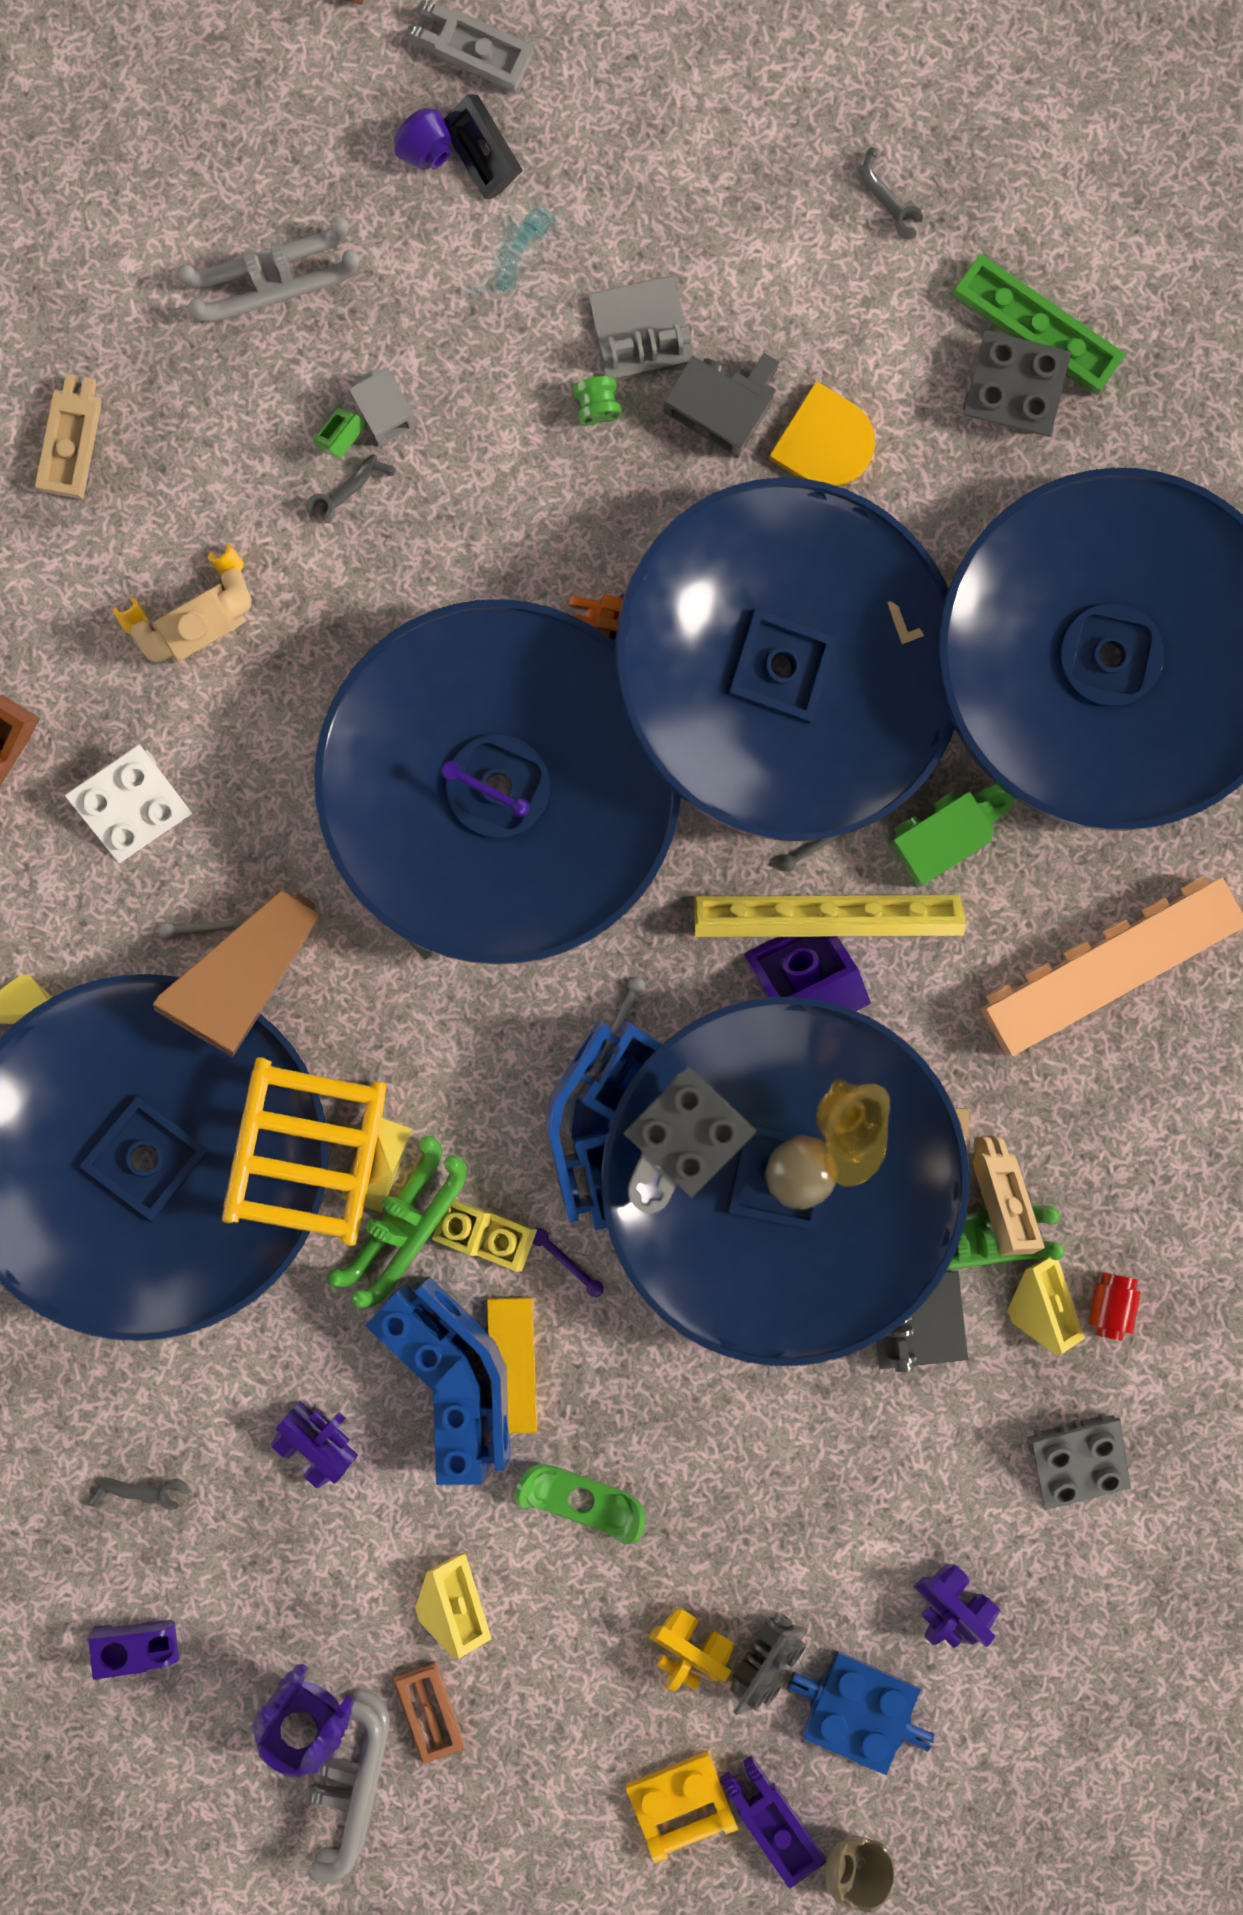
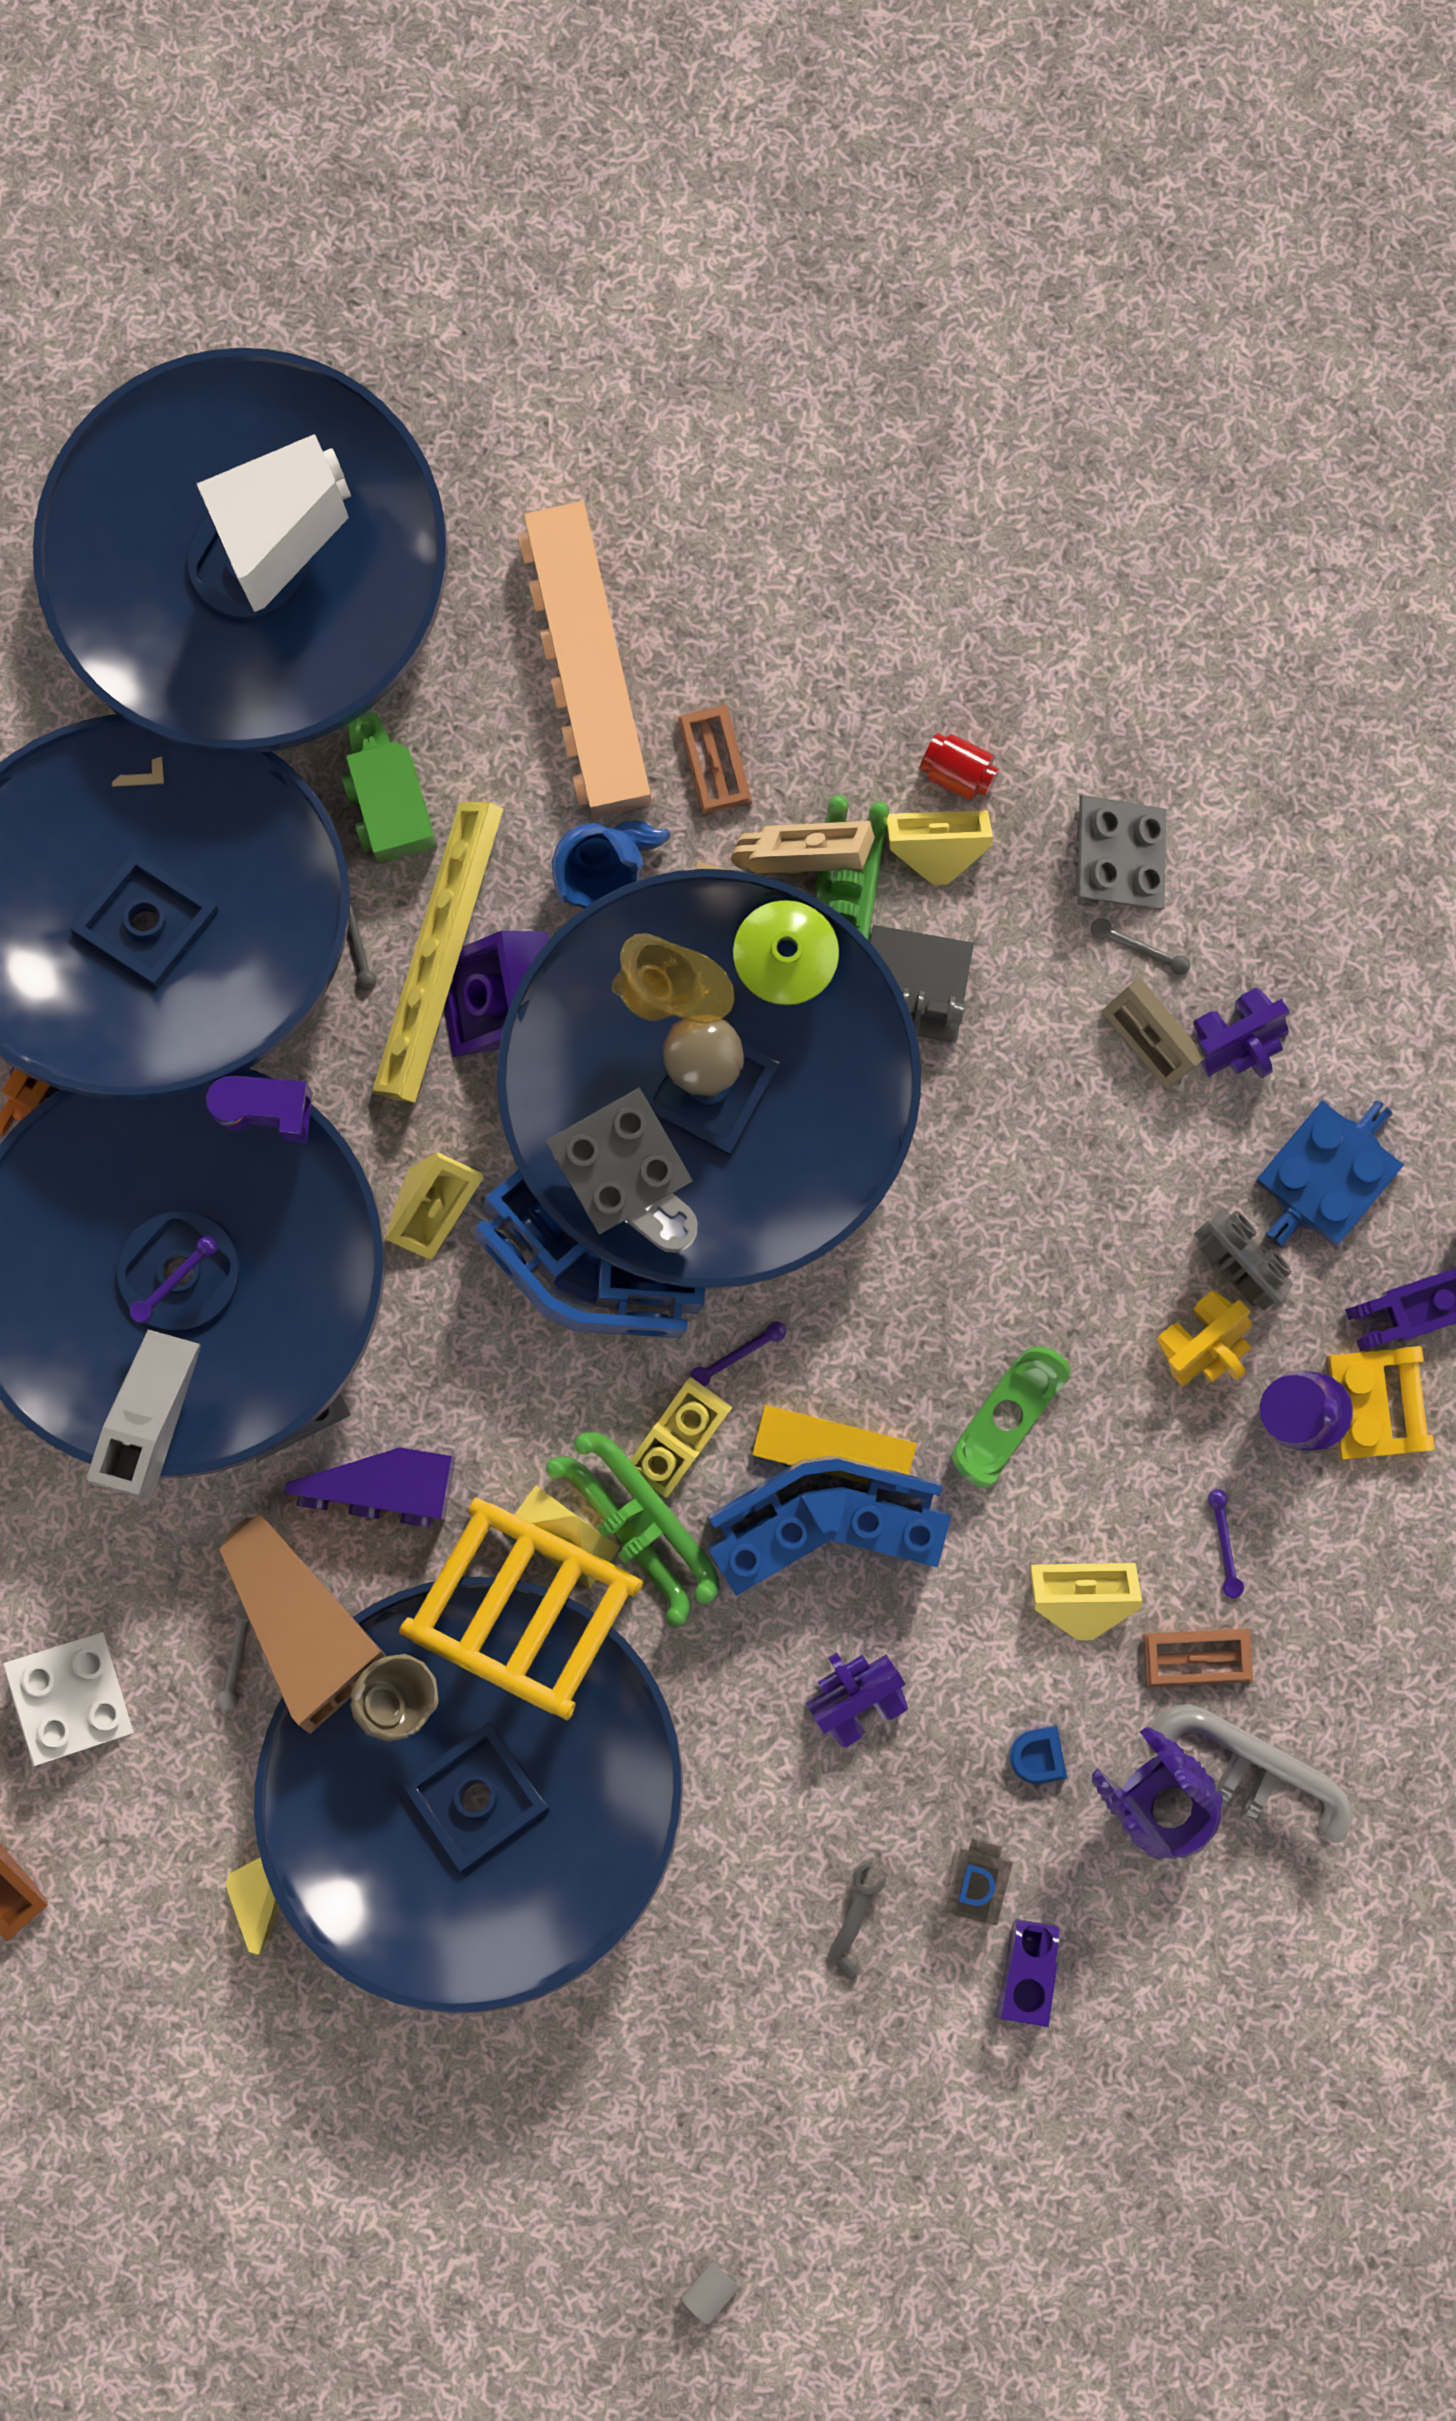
camera: 70 degrees left, 5 degrees down
(194, 1585) = (977, 1881): none -> clear smoke brick
(198, 1074) = (394, 1697): none -> dark tan hair
(311, 1603) = (1038, 1756): none -> blue tile
(363, 803) = (144, 1416): none -> light grey slope
(379, 1014) = (394, 1480): none -> dark purple slope
(496, 1724) = (1232, 1586): none -> dark purple hinge
(616, 974) = (431, 1203): none -> light yellow slope
(650, 801) = (250, 1101): none -> dark purple leg
(657, 1748) = (1306, 1410): none -> dark purple hat
(887, 1207) = (782, 978): none -> lime dish
(925, 1029) = (585, 880): none -> blue hair
(939, 1537) = (1153, 1033): none -> dark tan tile
(1012, 1463) = (1102, 928): none -> dark grey hinge
(1027, 1115) = (725, 800): none -> nougat tile
(1158, 674) = (276, 514): none -> white slope

